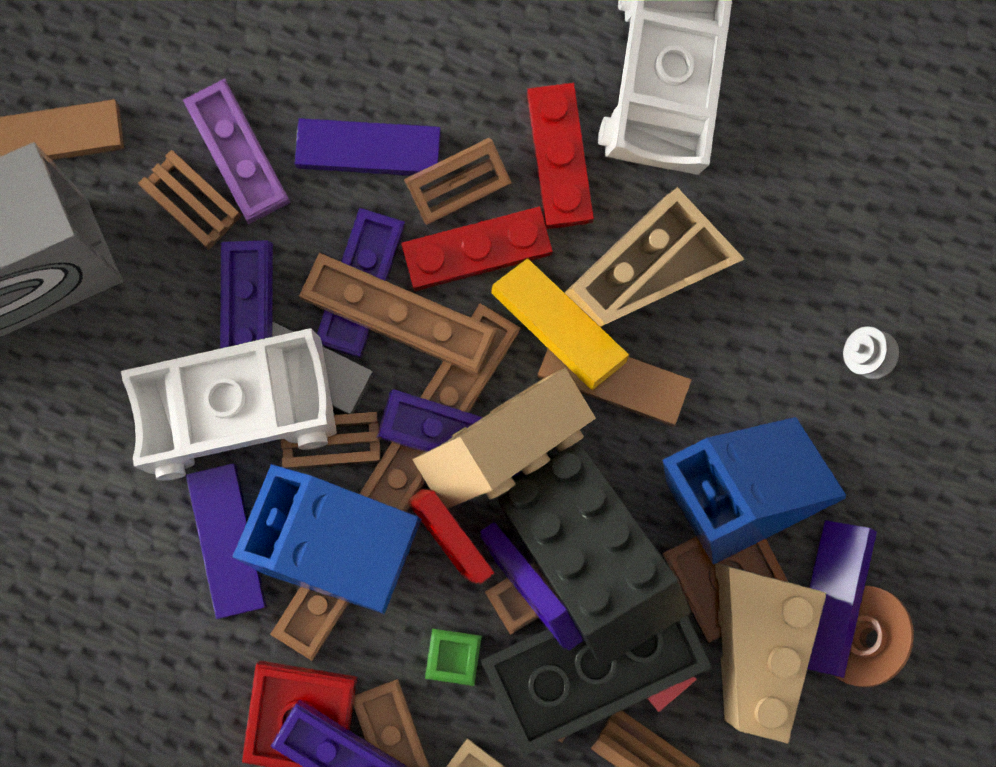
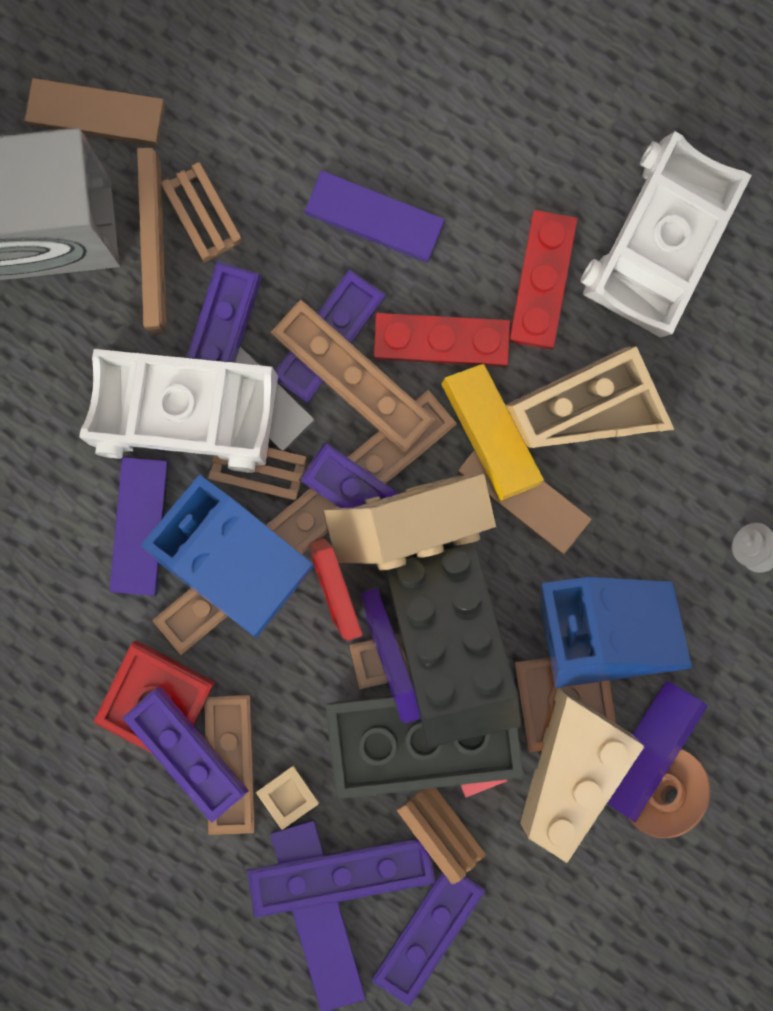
camera: 10 degrees right, 5 degrees up
(148, 244) = (152, 241): none -> medium nougat tile
(236, 151) = (256, 181): medium lavender tile -> none
(450, 164) = (444, 257): medium nougat tile -> none
(453, 657) = (303, 692): bright green tile -> none

